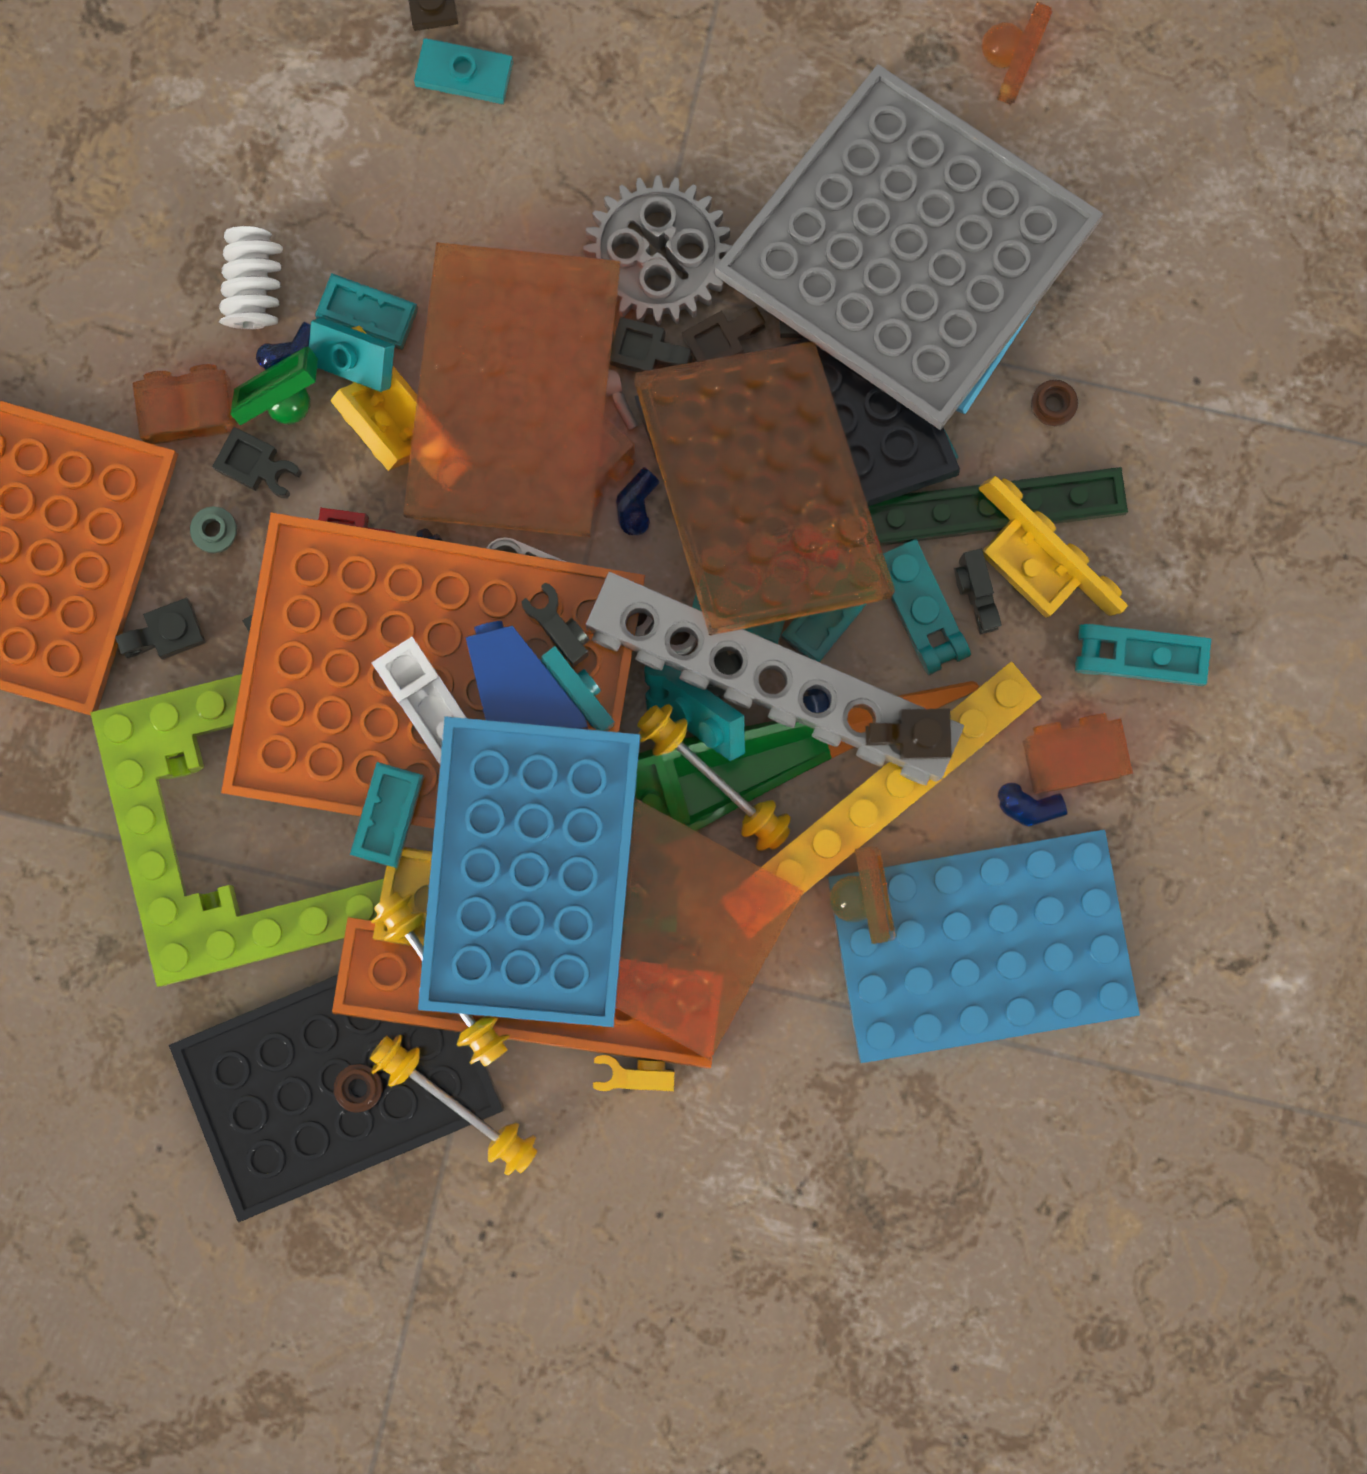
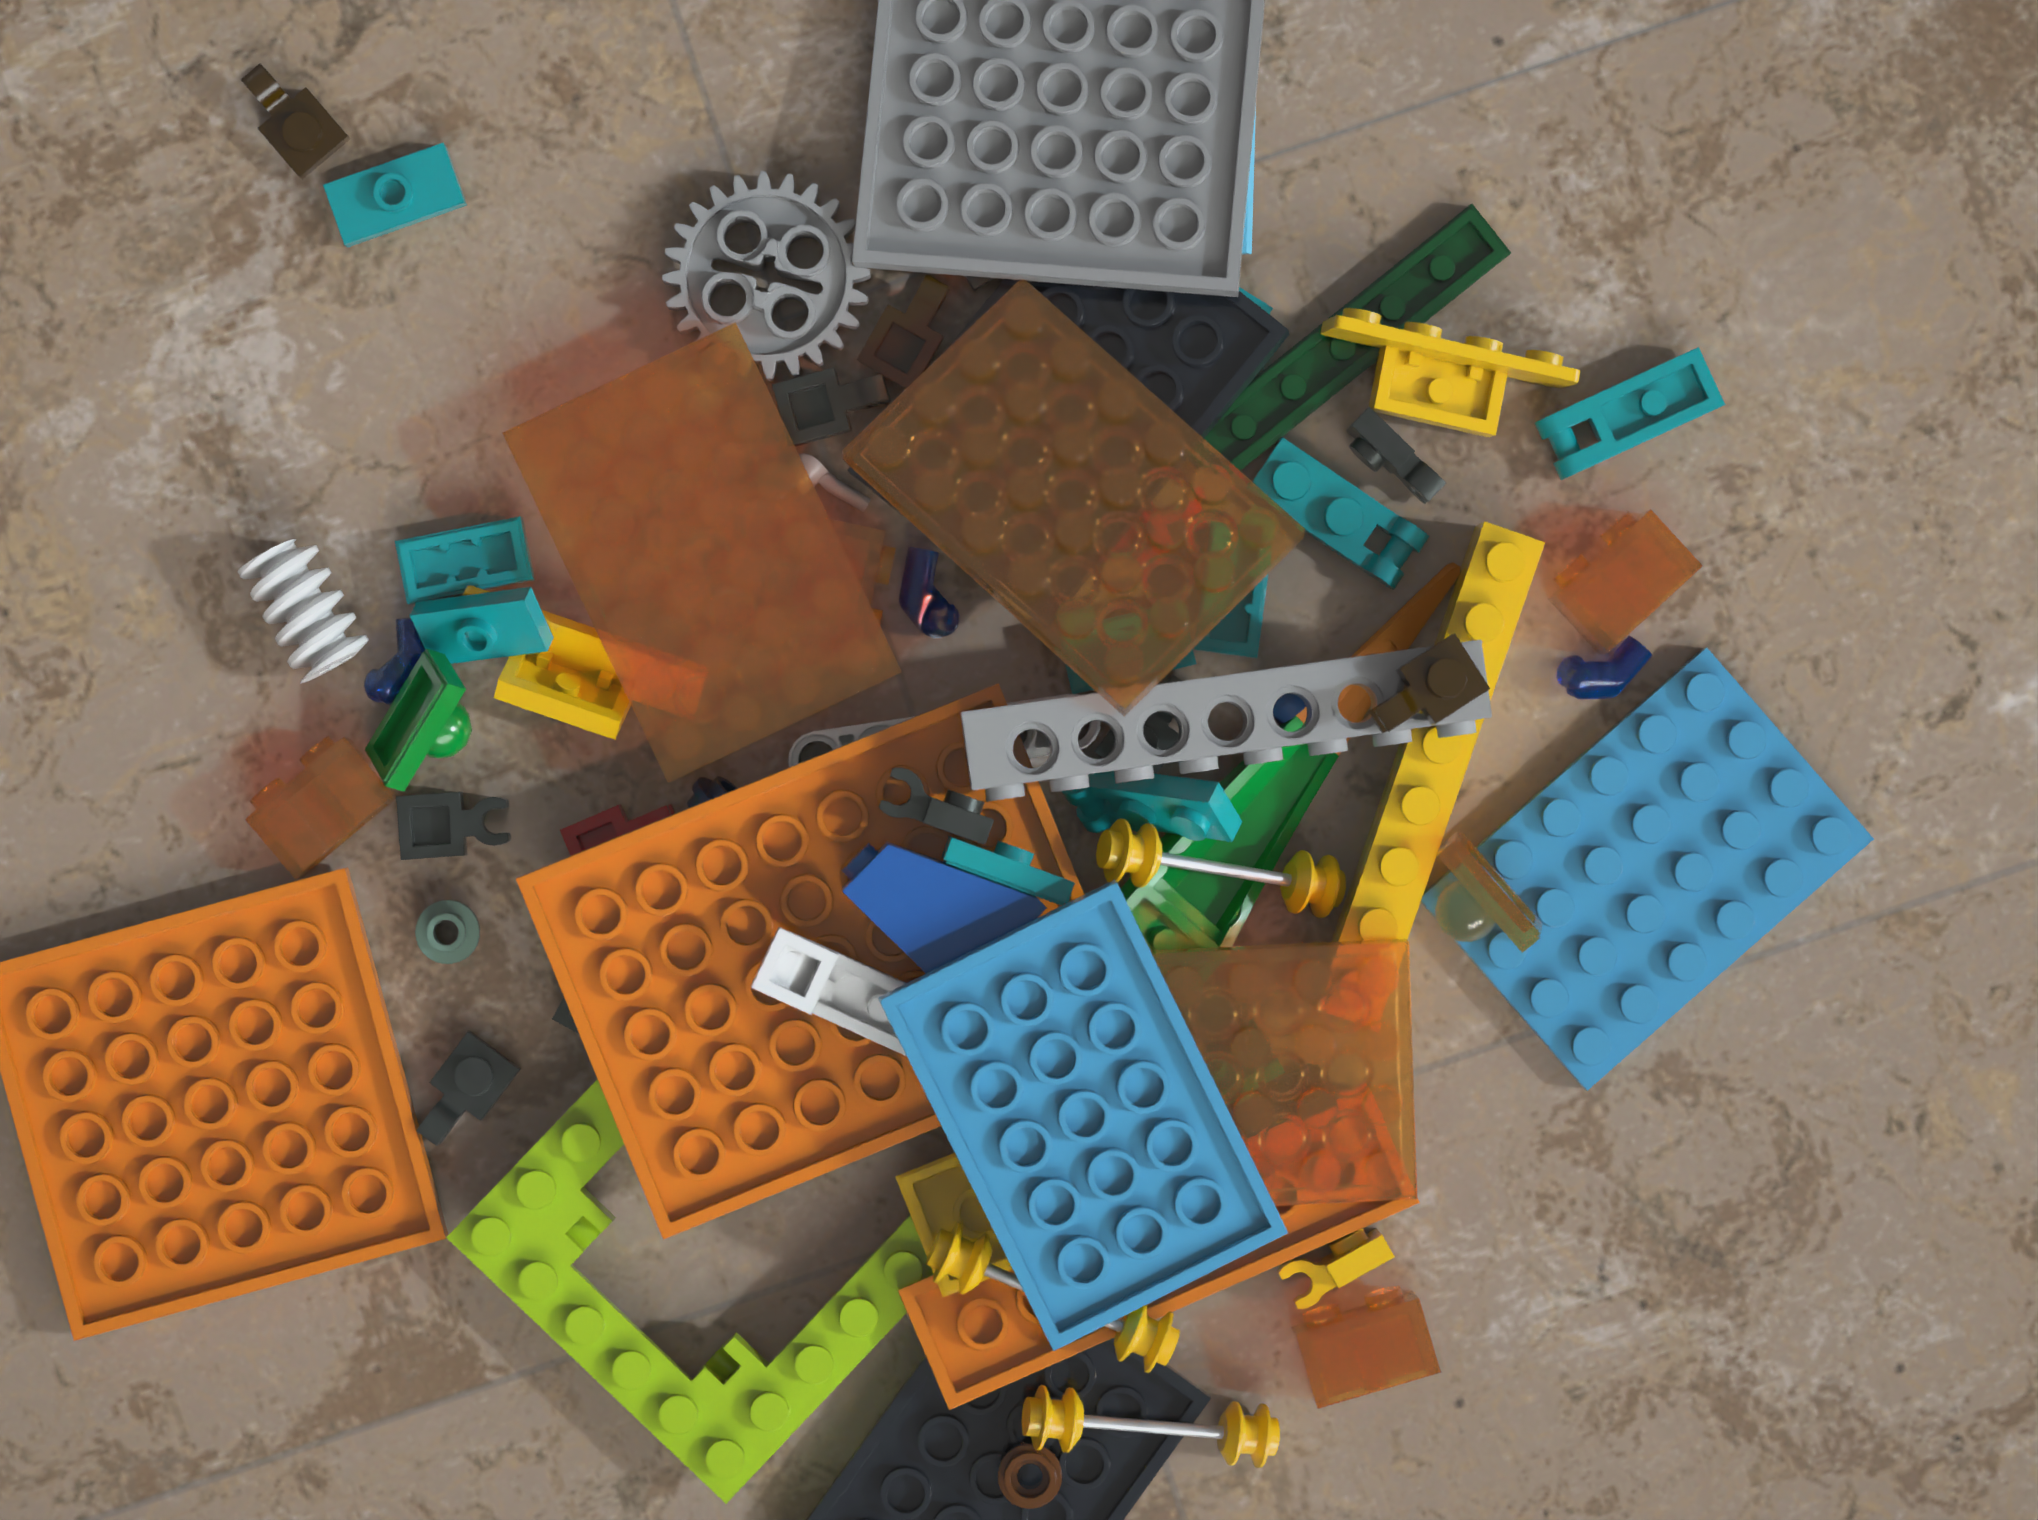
camera: 30 degrees left, 5 degrees up
(387, 815) = (874, 1148): teal plate -> none
(620, 1139) = (1365, 1346): none -> clear orange brick
(1064, 393) = (1358, 156): reddish brown plate -> none

